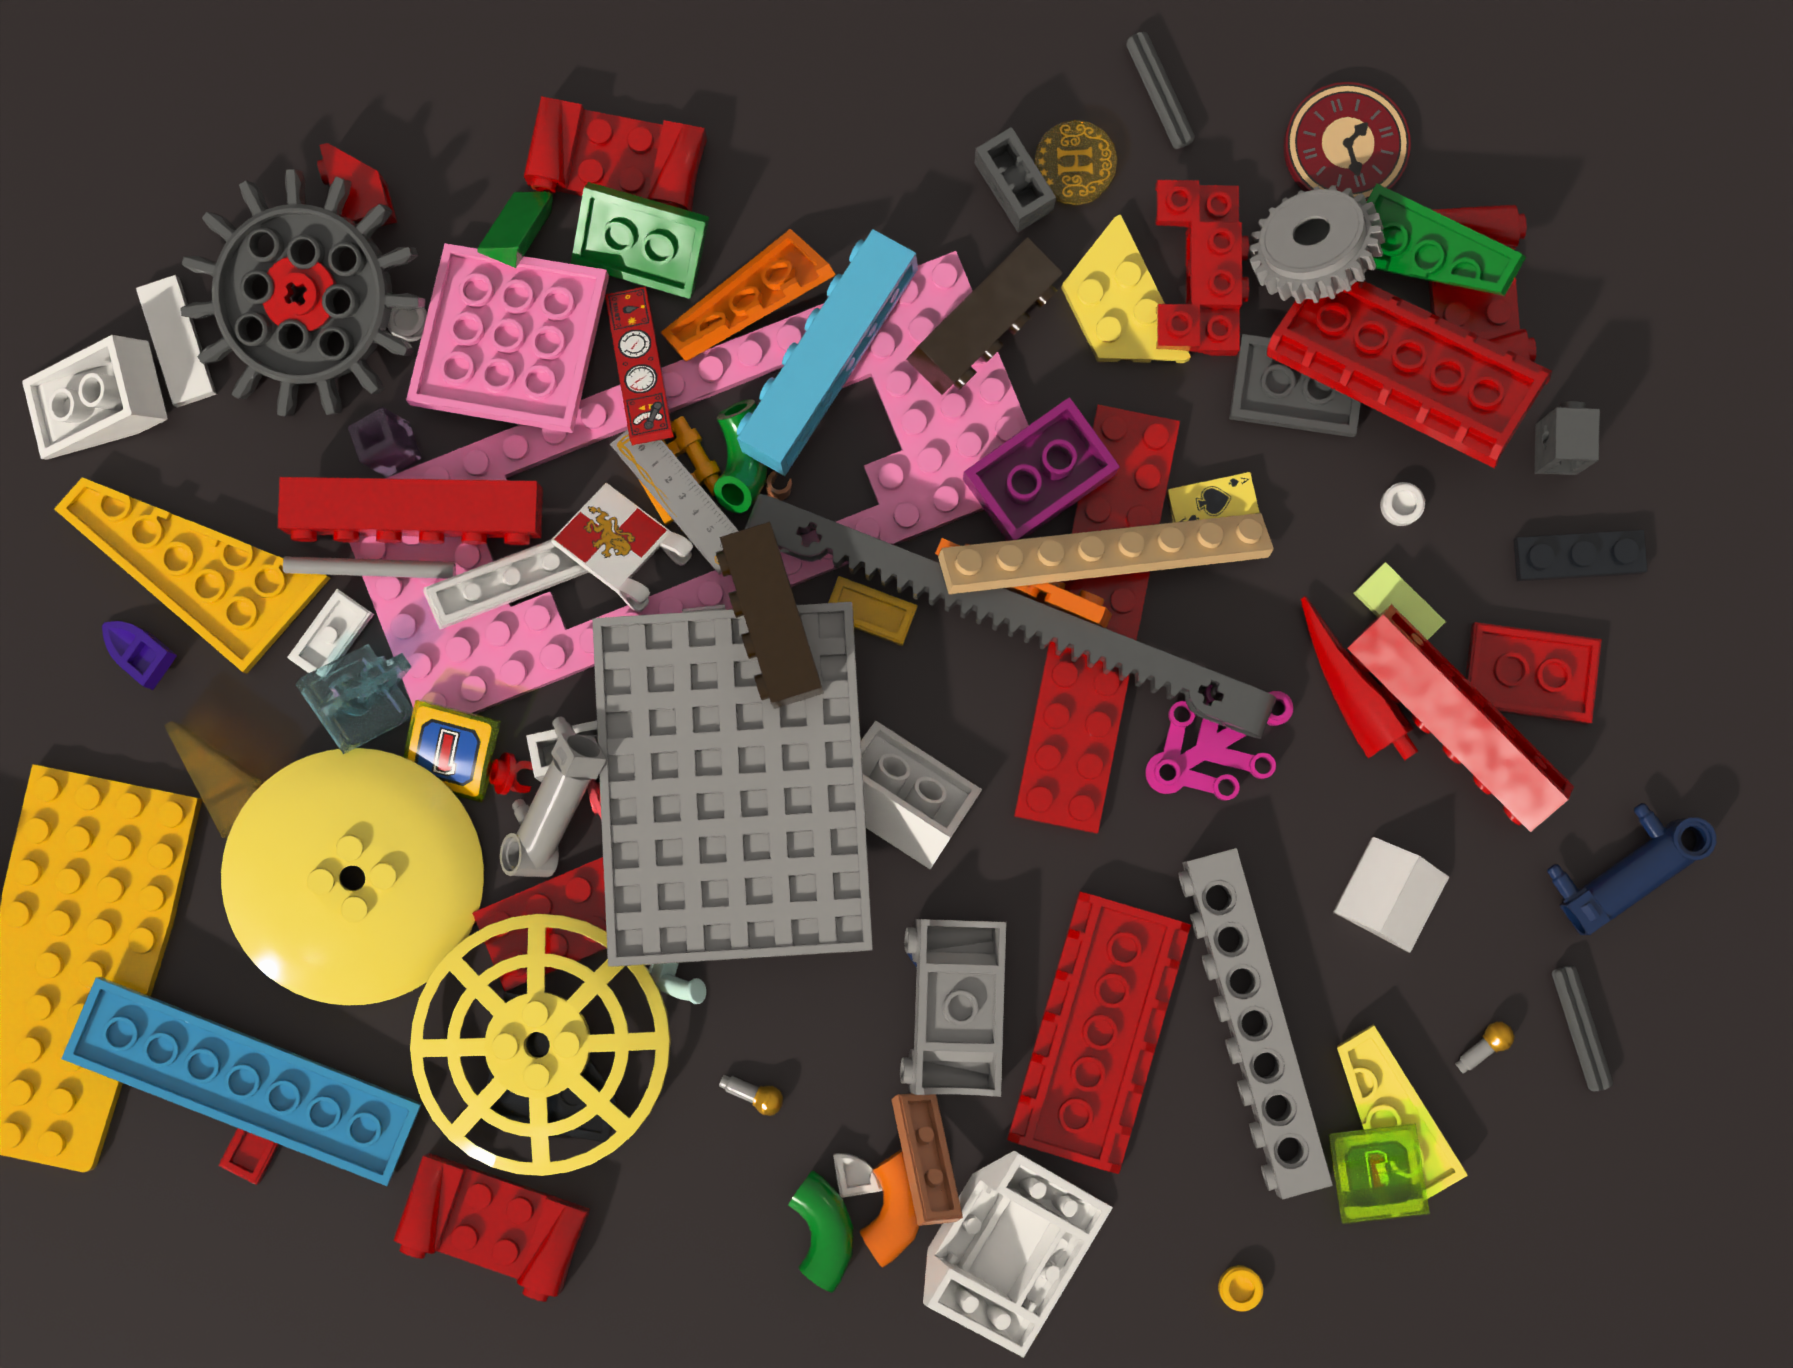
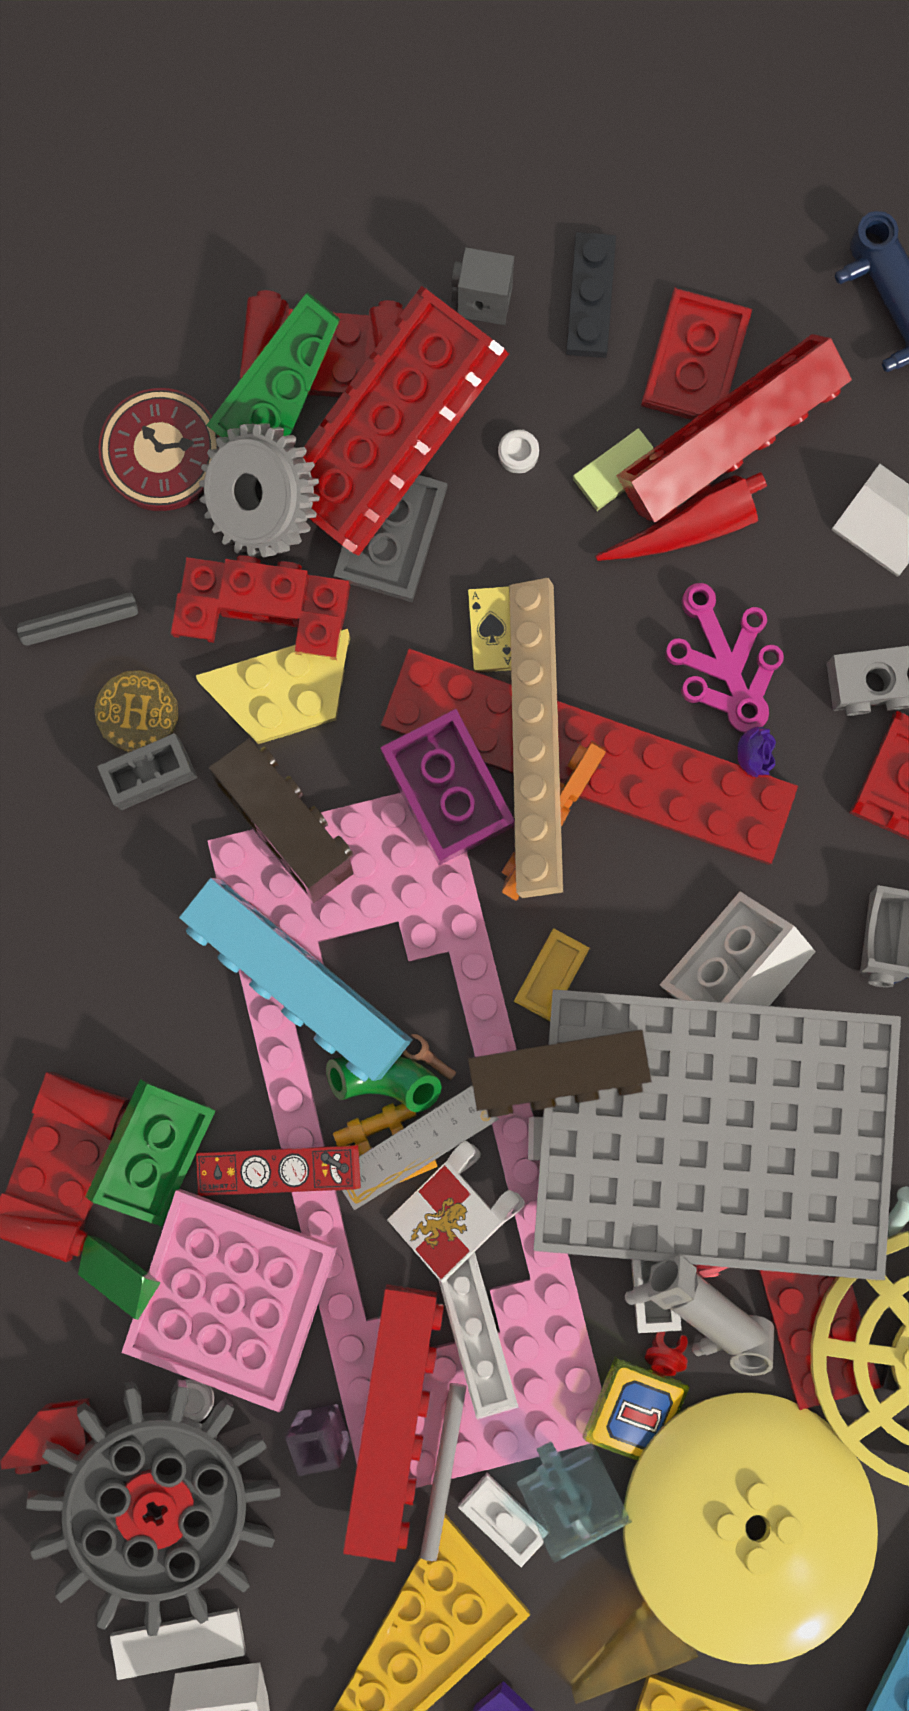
camera: 85 degrees left, 0 degrees up
(755, 290) = (220, 1046): orange wing -> none
(1126, 785) = (756, 751): none -> dark purple plate
(1238, 706) = (696, 635): dark grey gear -> none

